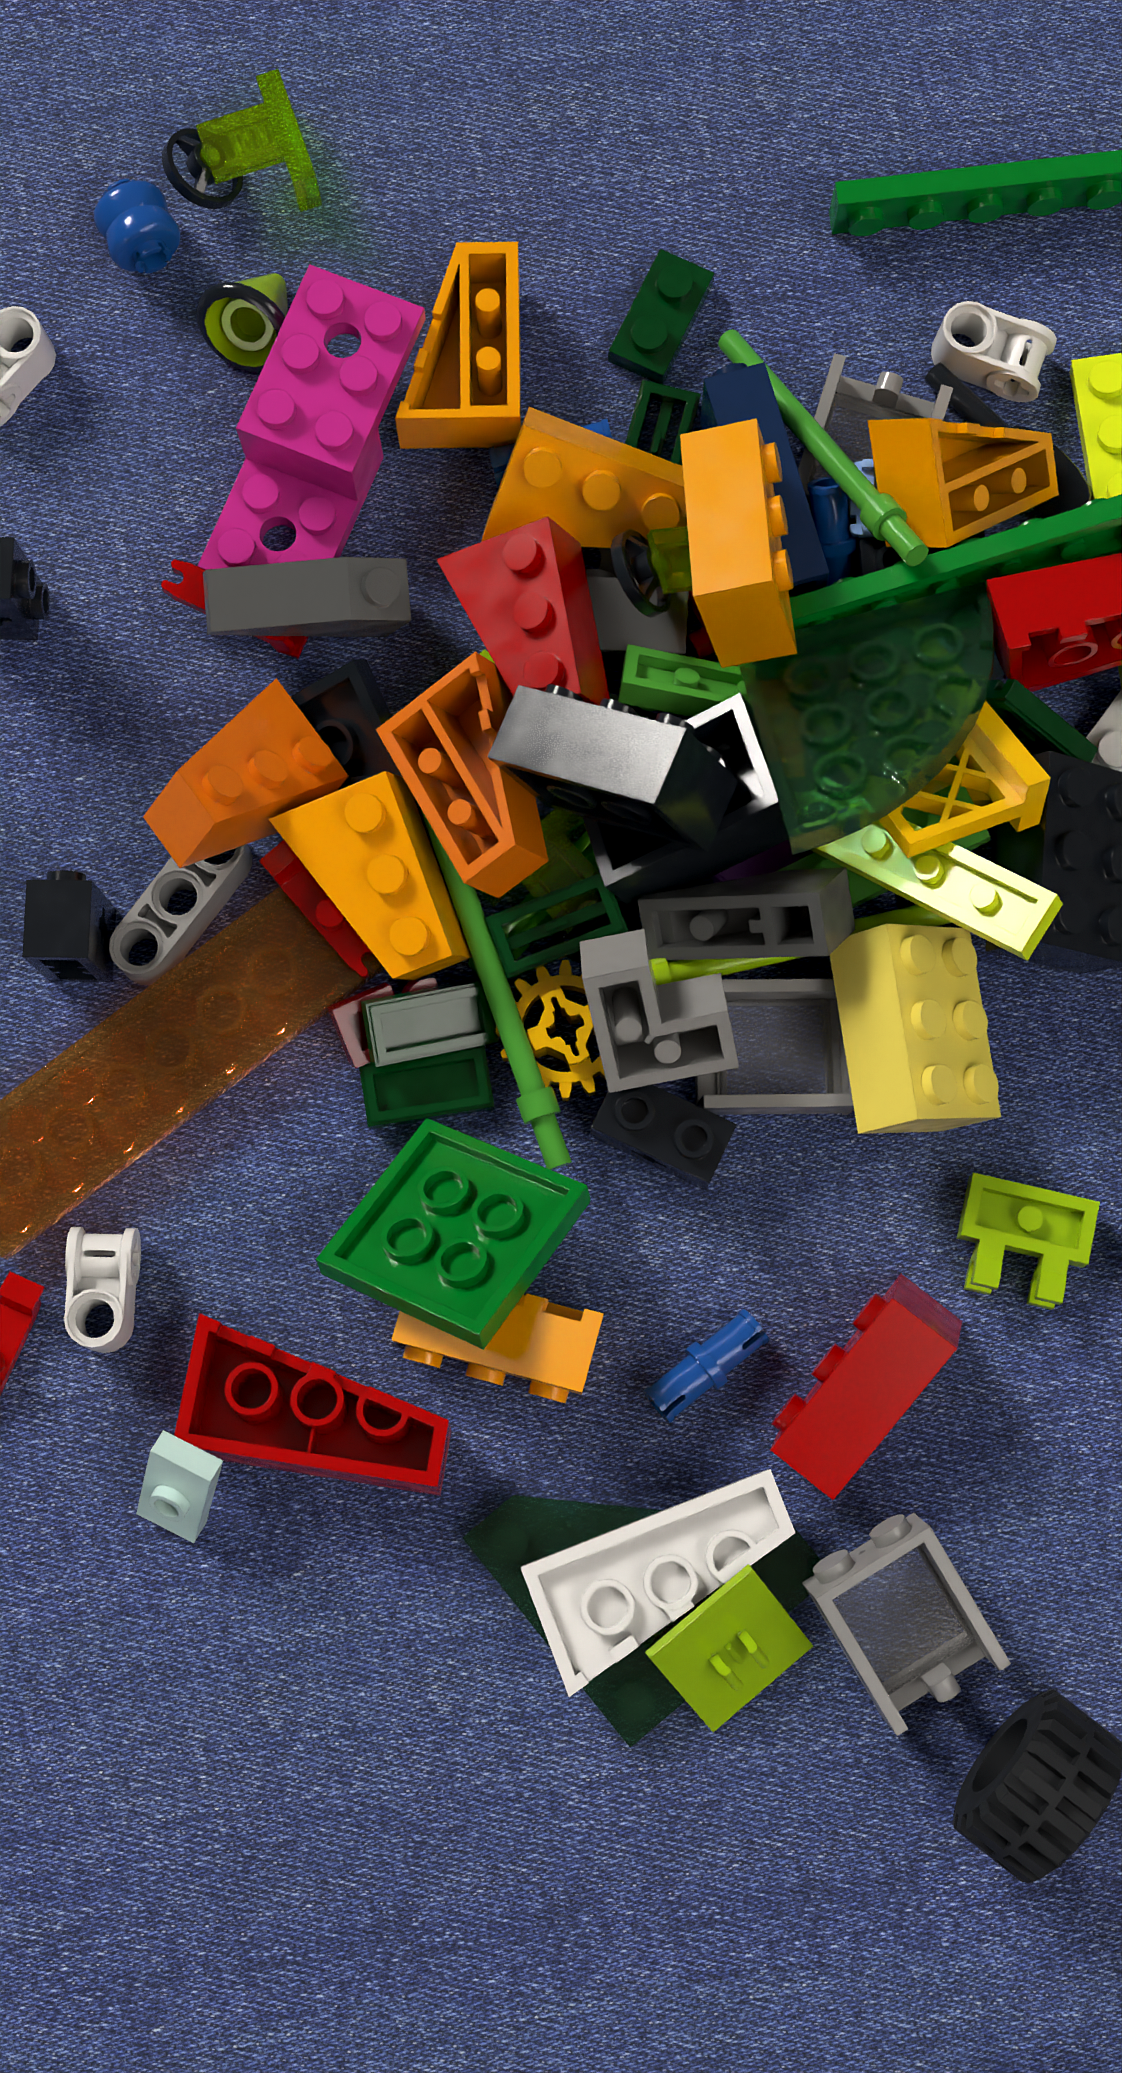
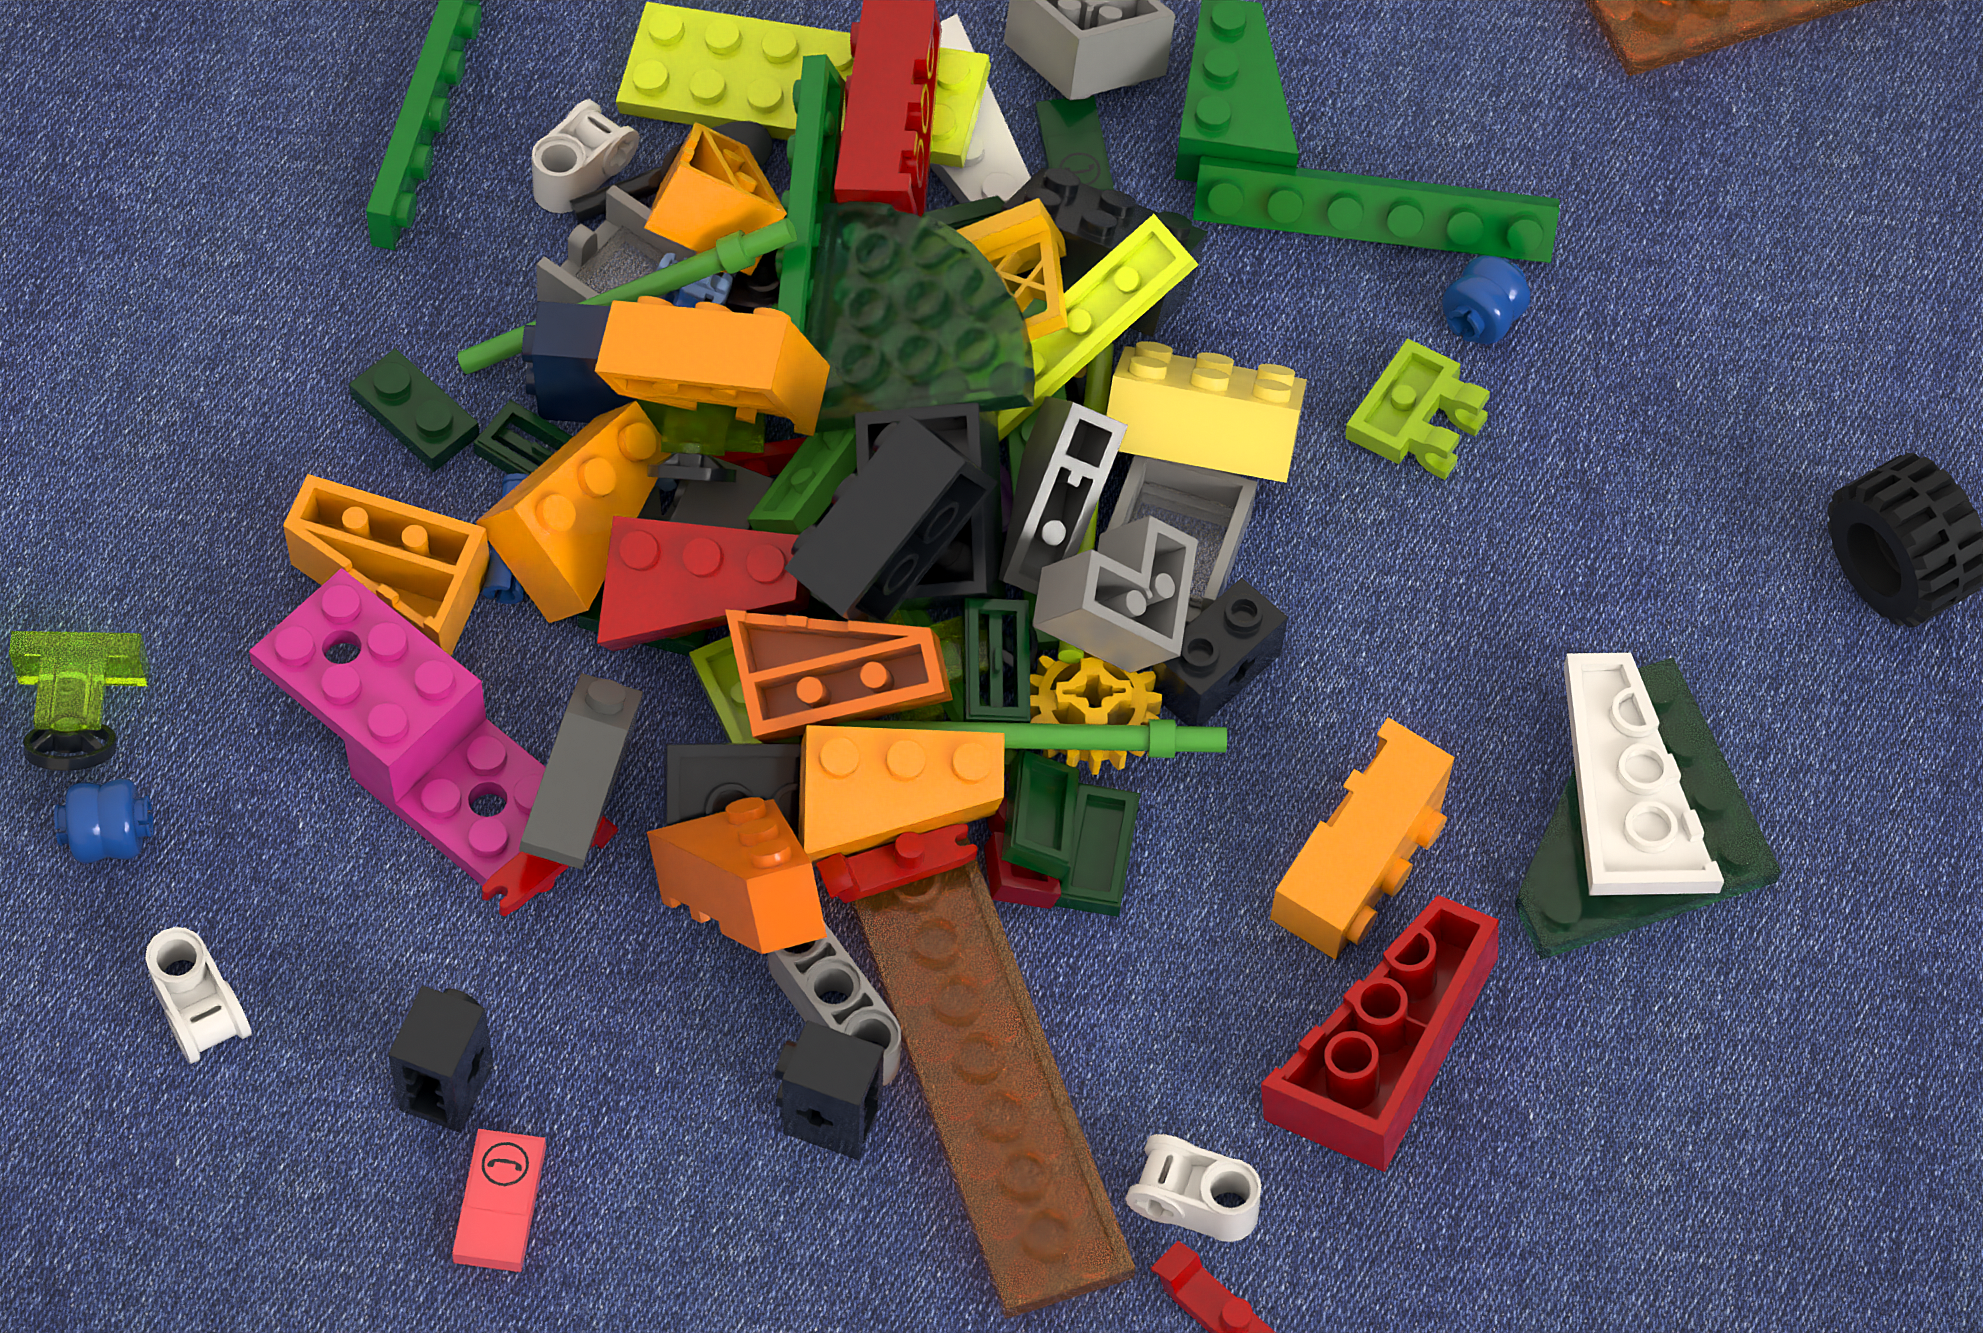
camera: 75 degrees left, 20 degrees down
(178, 1486) = (1422, 1161): light aqua plate -> none
(243, 319) = (261, 750): lime hat -> none
(454, 1232) = (1260, 836): green plate -> none
(706, 1365) = (1449, 696): blue pin -> none
(729, 1648) = (1716, 752): lime piece -> none
(865, 1385) = (1513, 564): red wedge -> none
(902, 1616) = (1728, 602): window -> none

